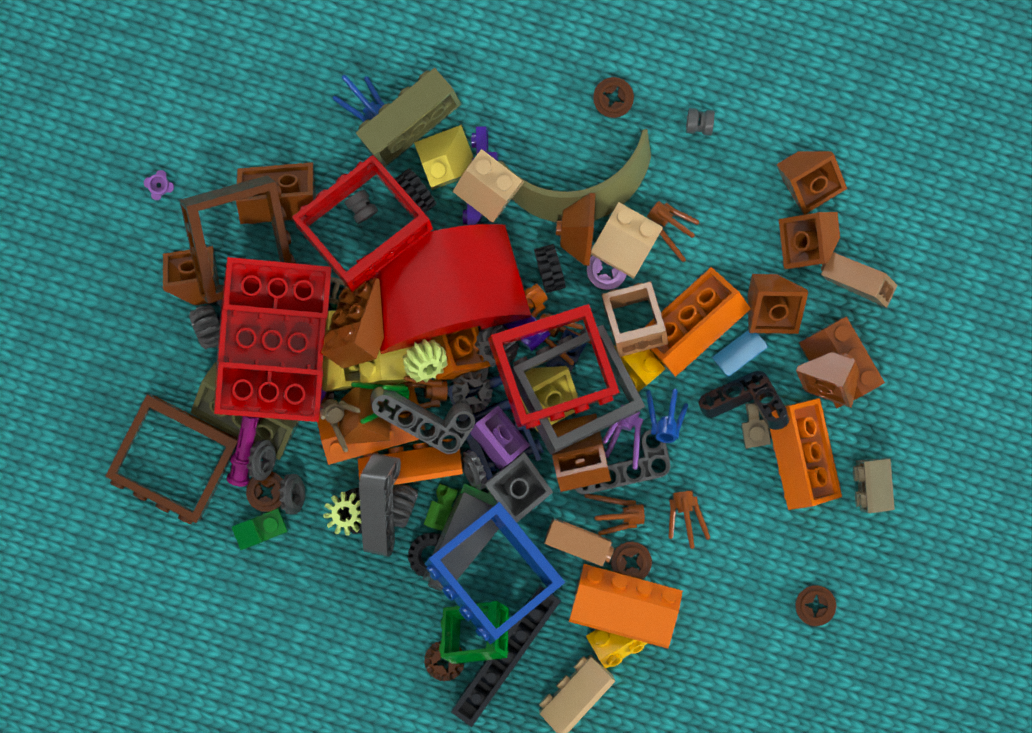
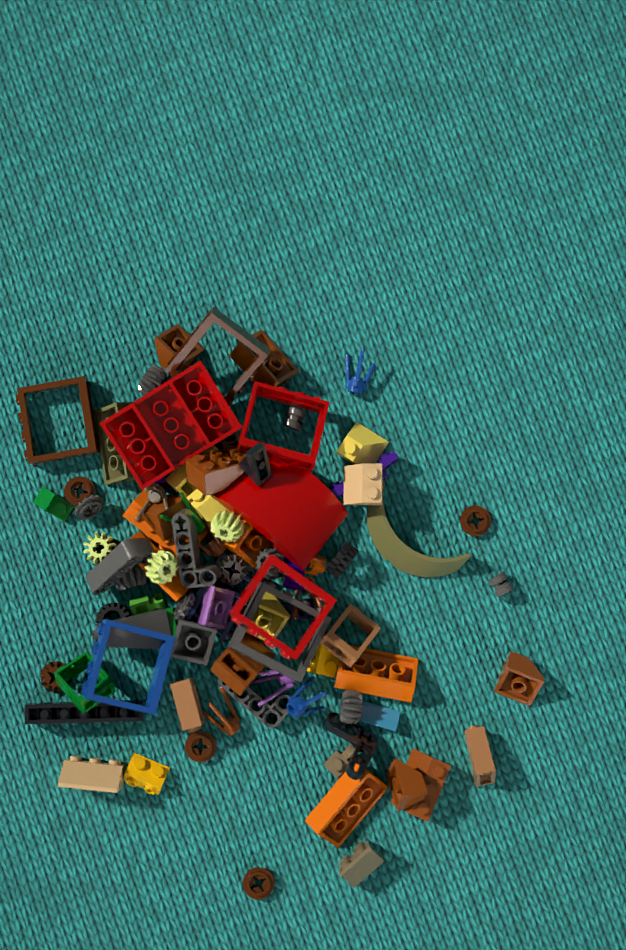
camera: 60 degrees right, 5 degrees down
(151, 184) = (217, 295): medium lavender plate -> none
(239, 472) = (88, 461): magenta pin -> none
(261, 469) = (103, 473): dark grey gear -> none
(384, 280) = (257, 464): none -> black slope
(408, 117) = (368, 406): olive slope -> none
(416, 190) = (327, 444): black tyre -> none
(416, 461) = (161, 567): none -> yellowish green gear
(577, 228) = (378, 558): dark orange slope -> none
(604, 281) = (377, 592): lavender gear -> none
(625, 606) = (169, 764): orange slope -> none
(626, 240) = (394, 593): tan slope -> none
(663, 215) = (426, 603): dark orange plant -> none
(683, 502) = (261, 751): dark orange plant -> none
(708, 374) = (351, 706): none -> dark grey gear
(775, 304) = (424, 715): dark orange slope -> none
(808, 239) = (480, 706): dark orange slope -> none

